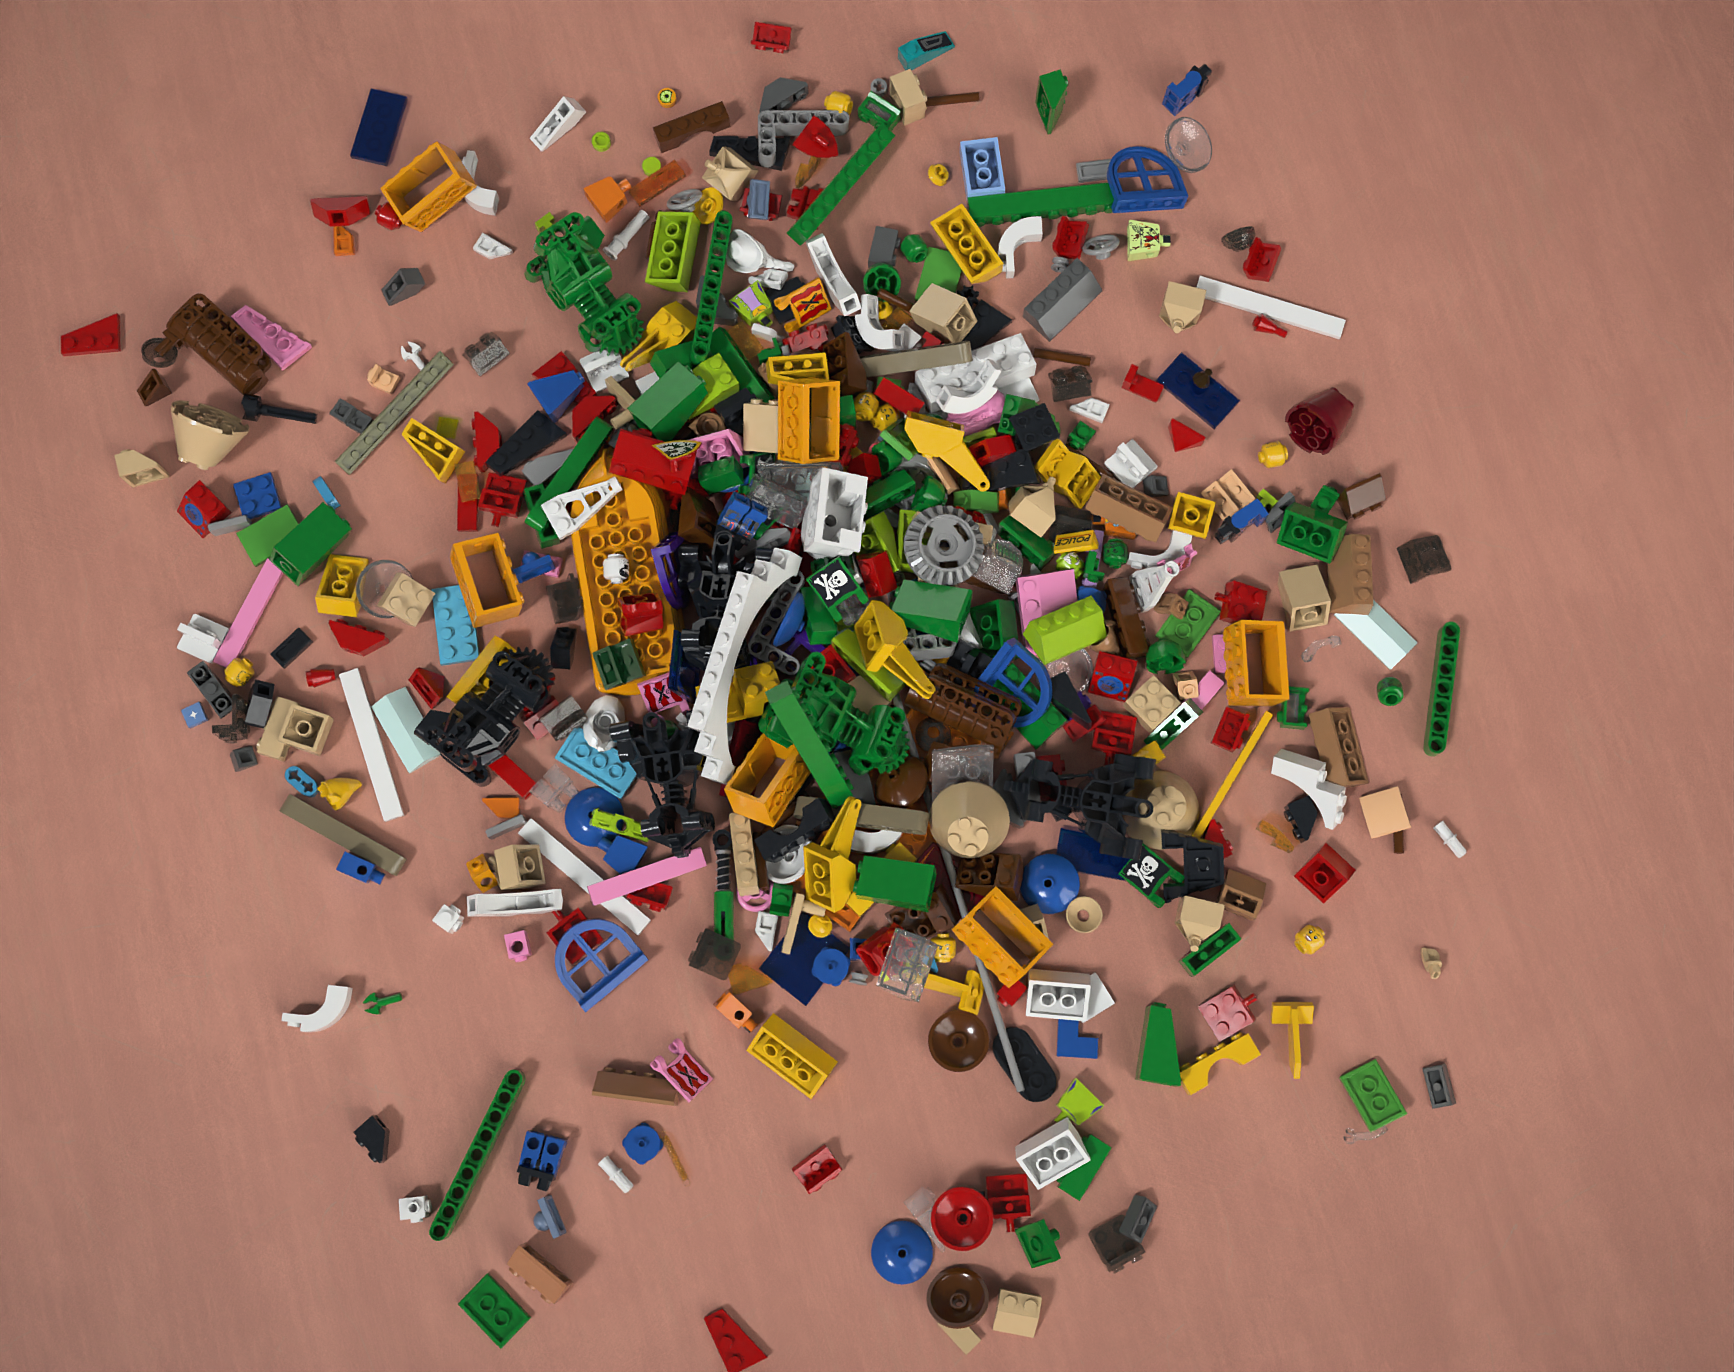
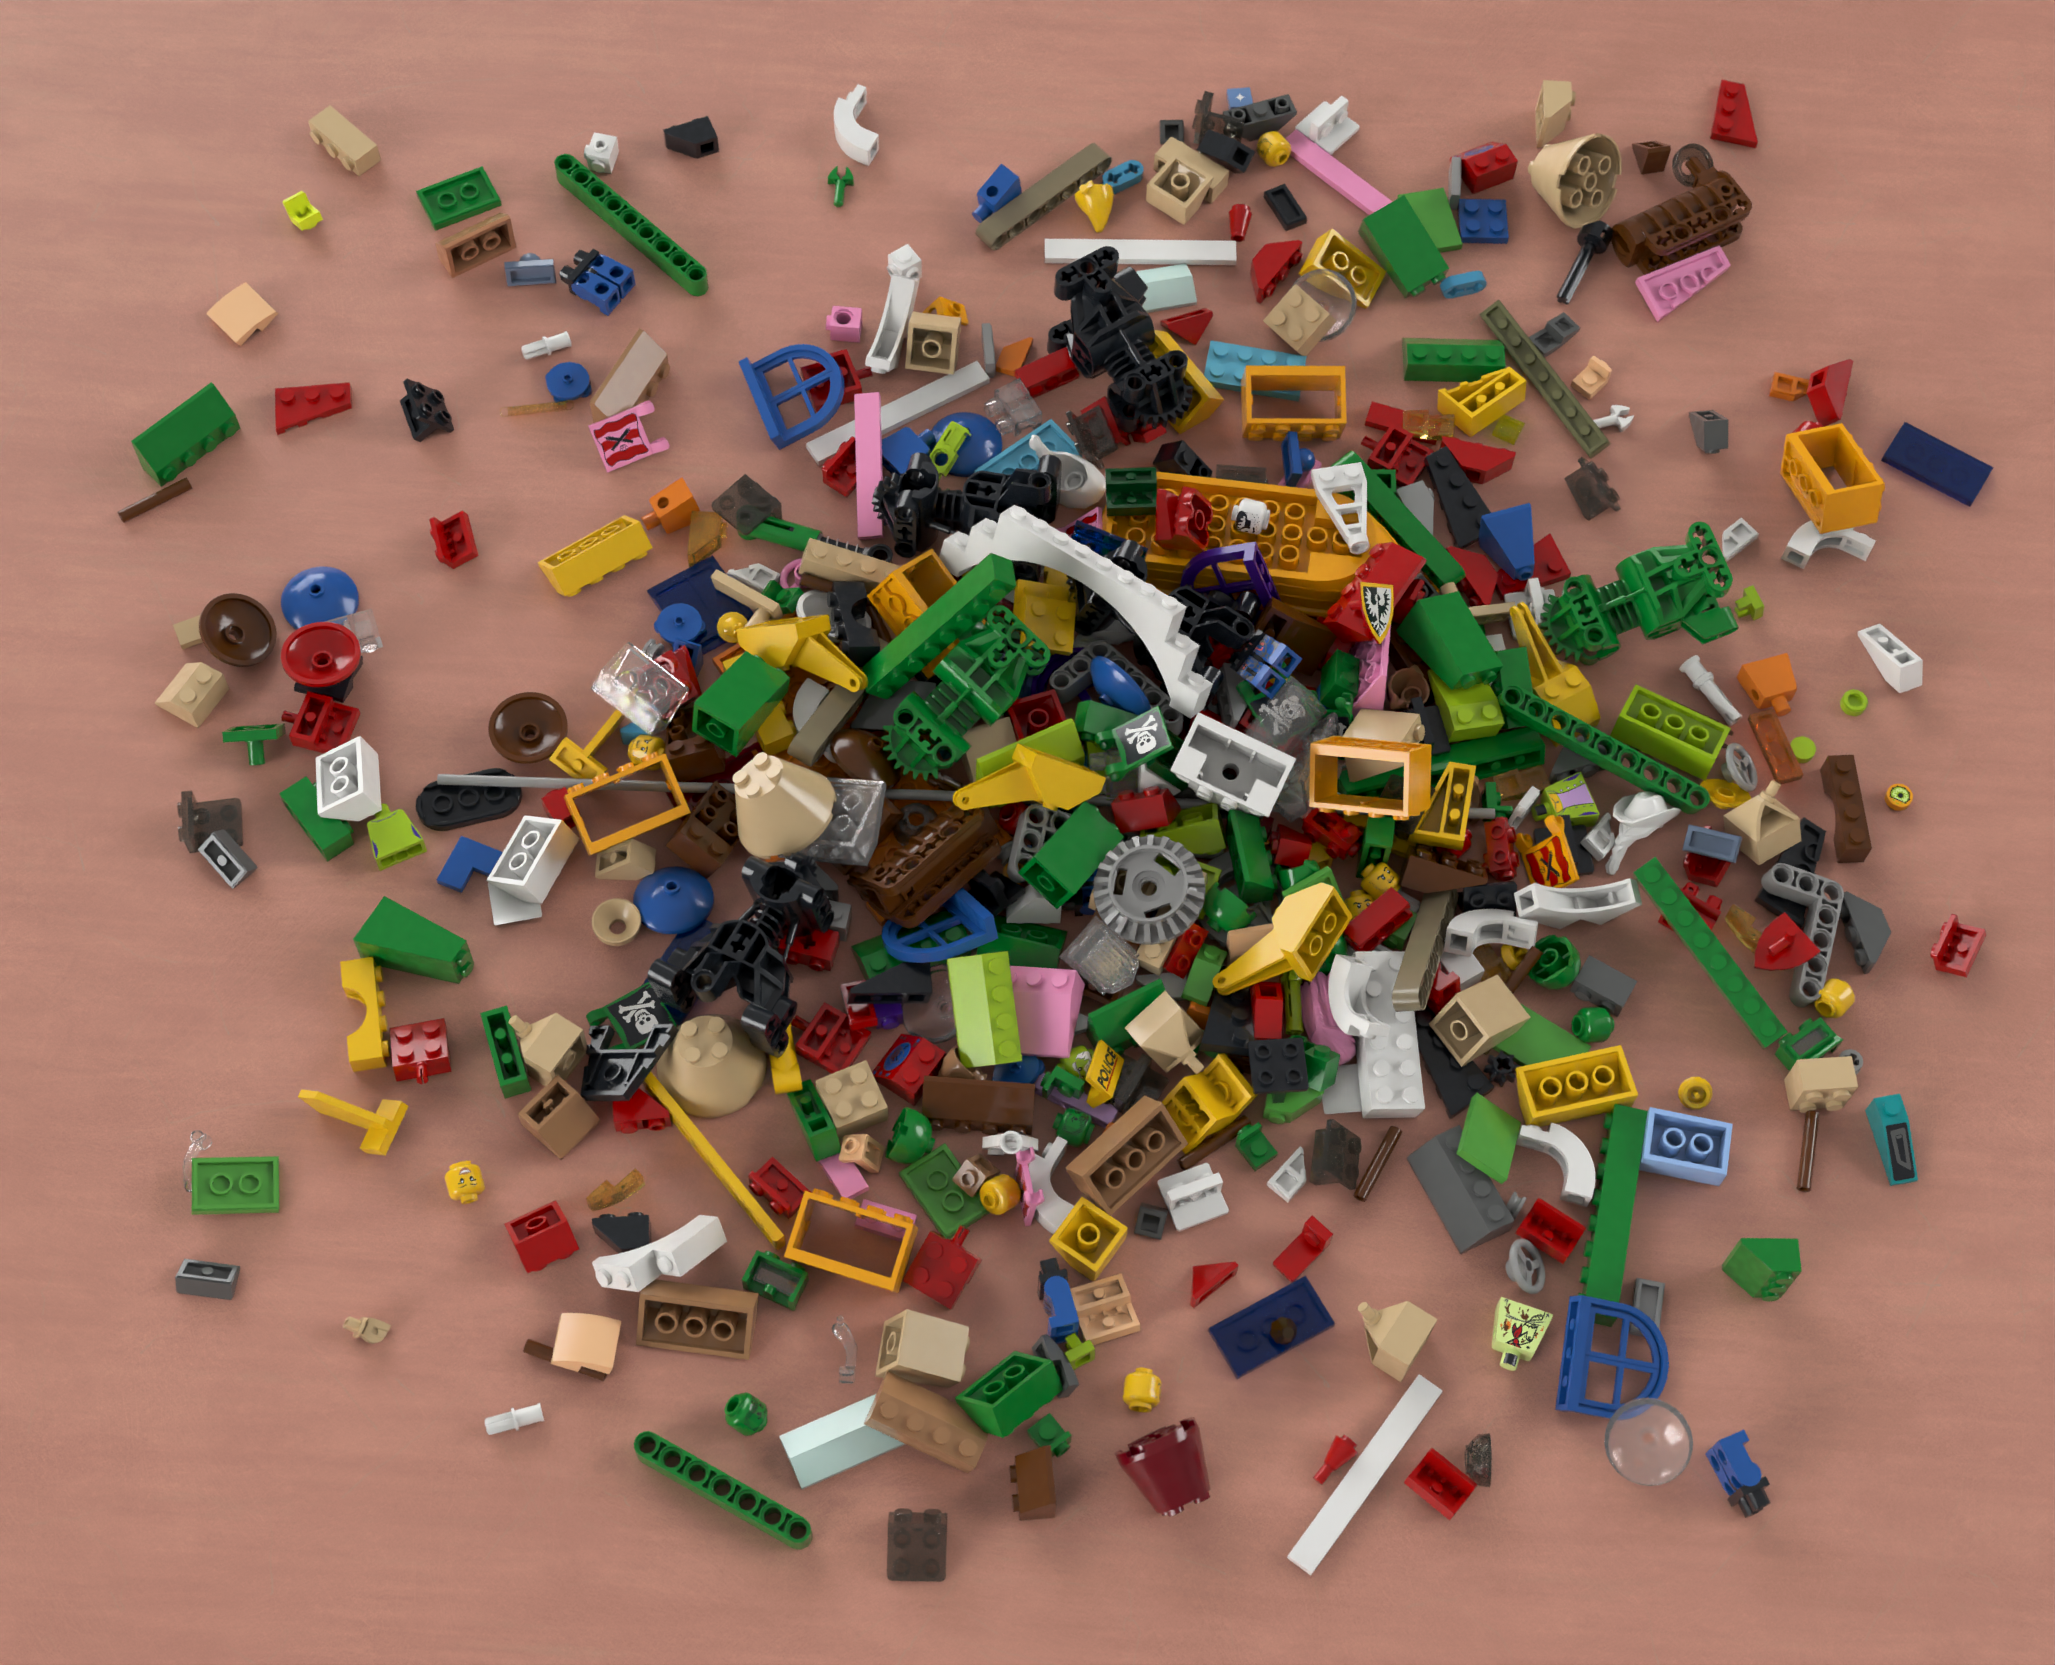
camera: 105 degrees right, 15 degrees down
(396, 482) = (1450, 359): none -> green slope
(710, 1243) = (424, 410): none -> black bracket
(1025, 288) = (1489, 1138): none -> bright green tile
(1182, 584) = (1000, 1194): none -> yellow head

